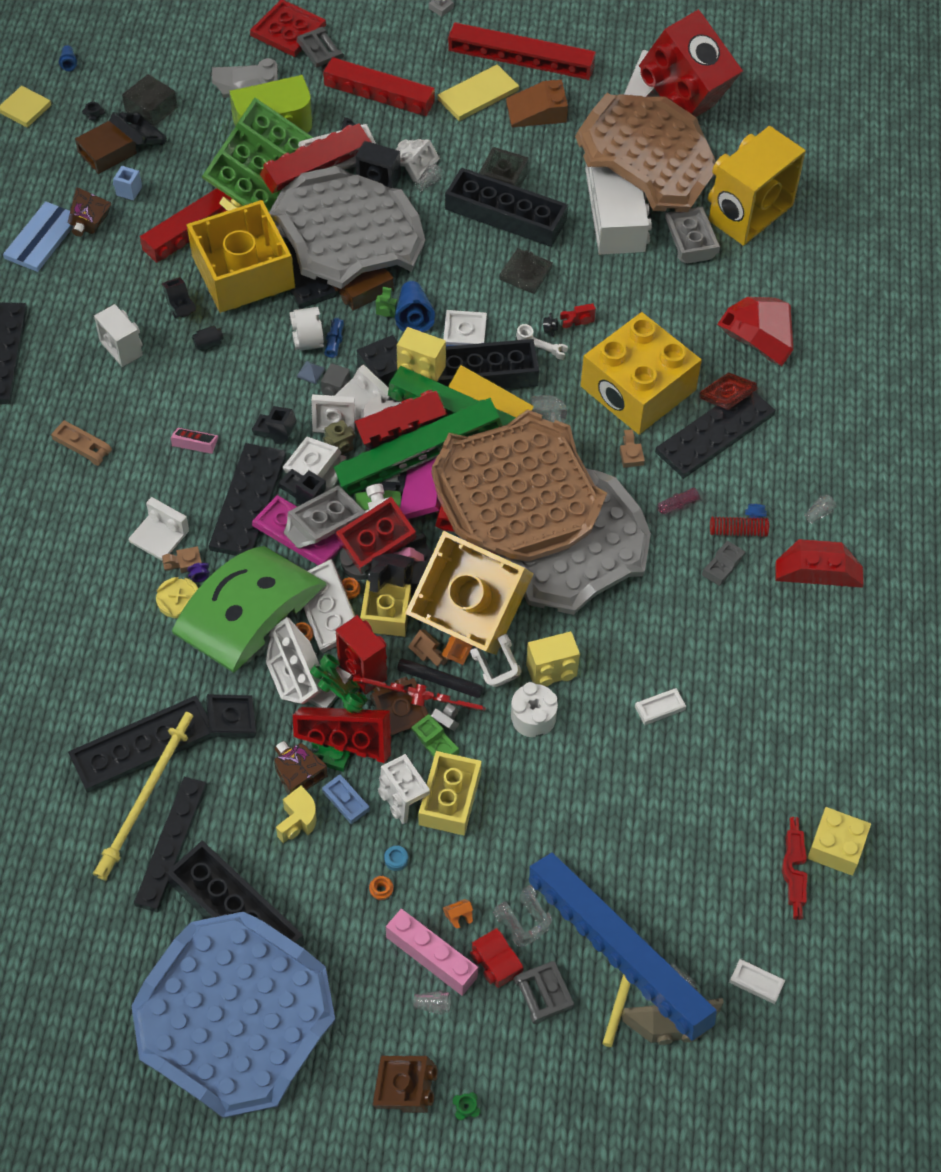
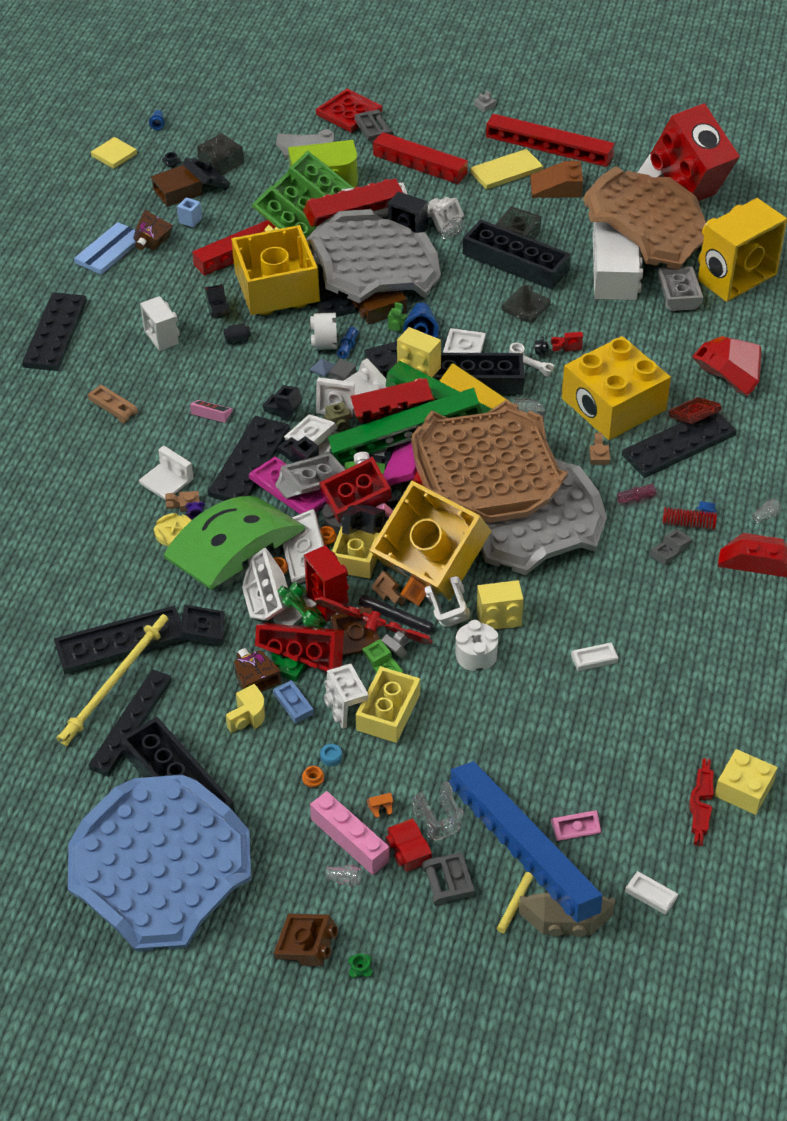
camera: 10 degrees right, 10 degrees down
(668, 911) = (576, 825): none -> bright pink slope

